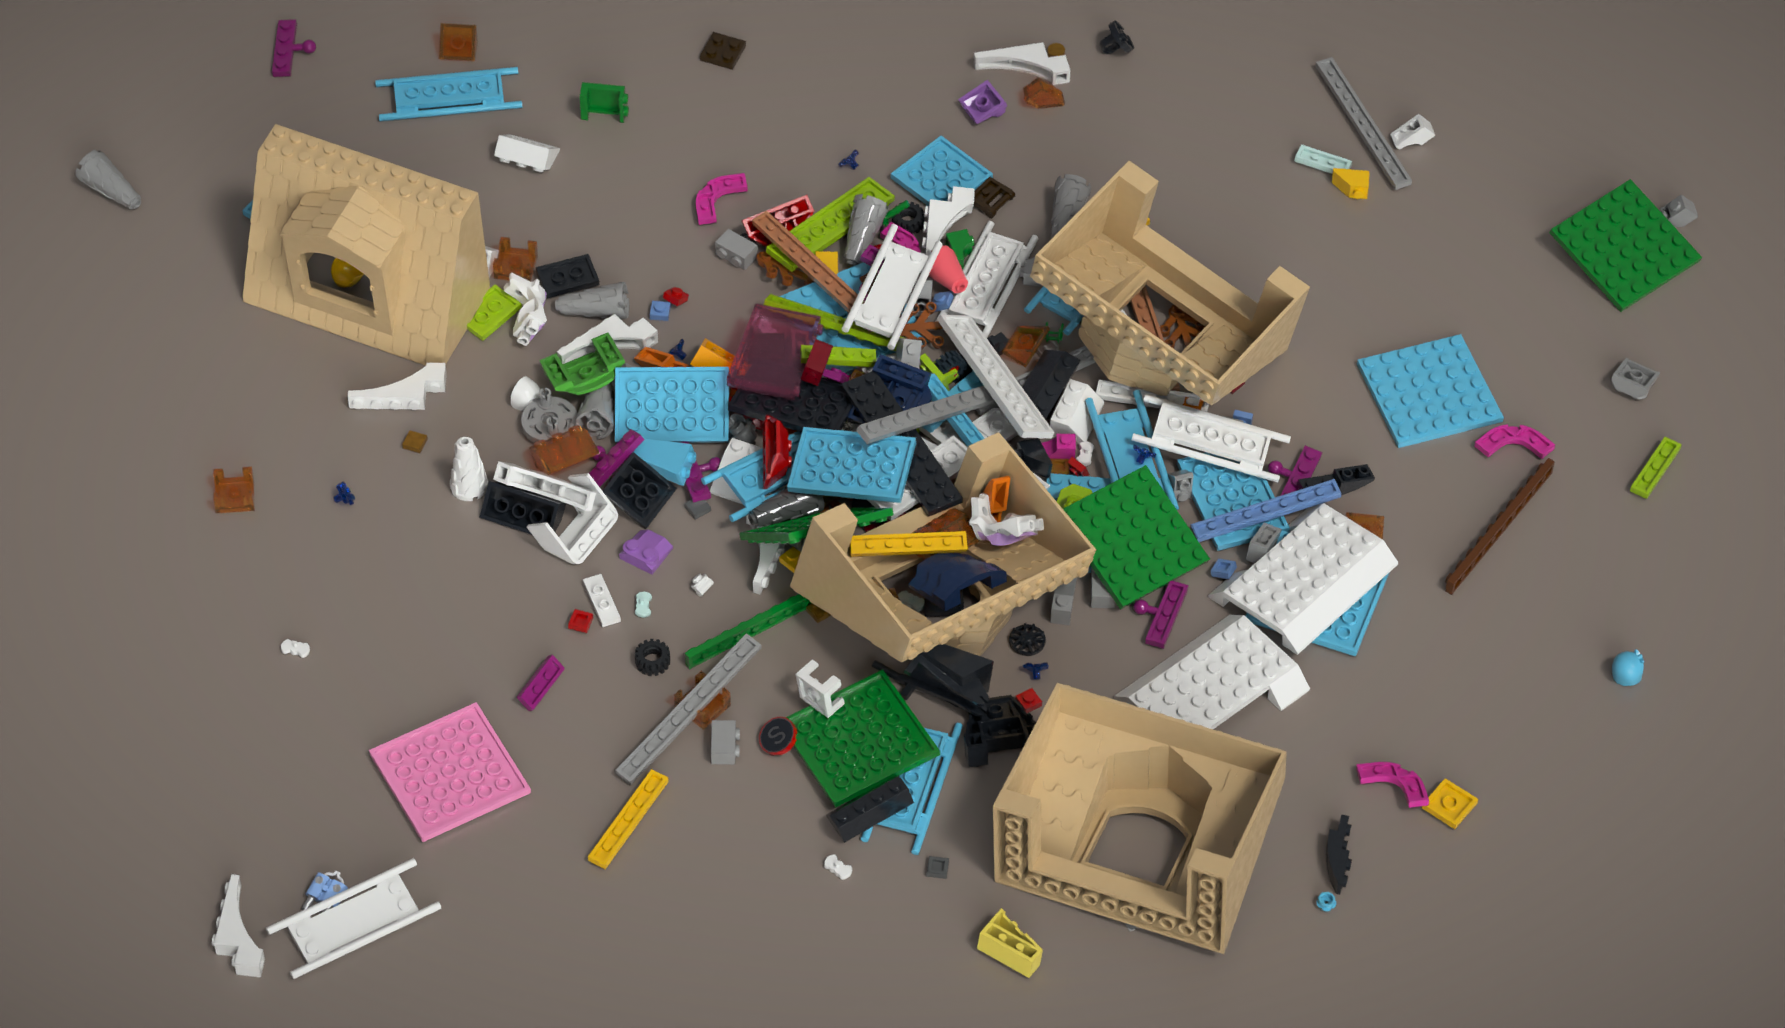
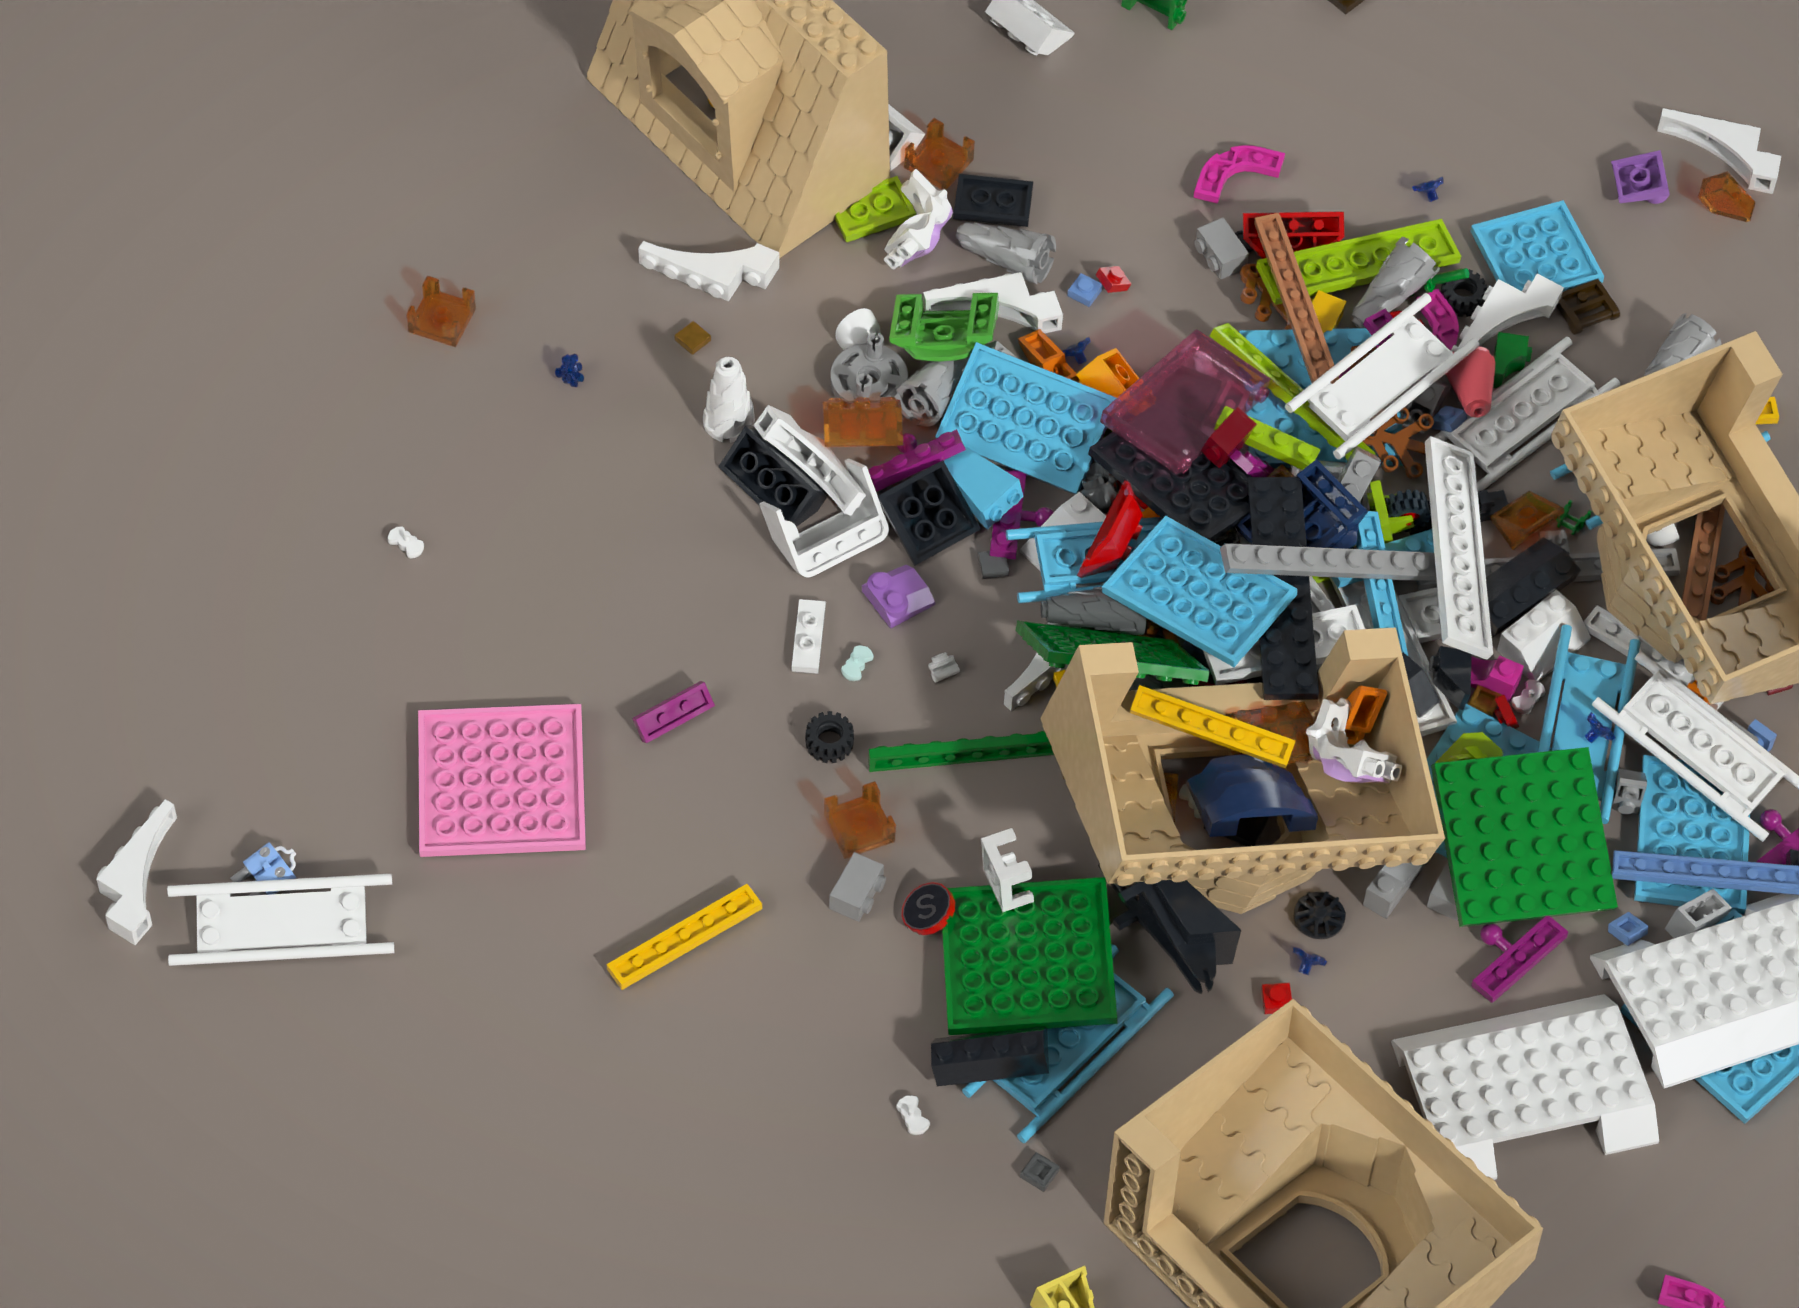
camera: 25 degrees right, 5 degrees up
(580, 621) = (767, 652): red plate -> none
(686, 710) = (828, 826): light grey plate -> none
(999, 729) = (1210, 1018): black wedge -> none
(1056, 49) = (1776, 145): pearl gold tile -> none

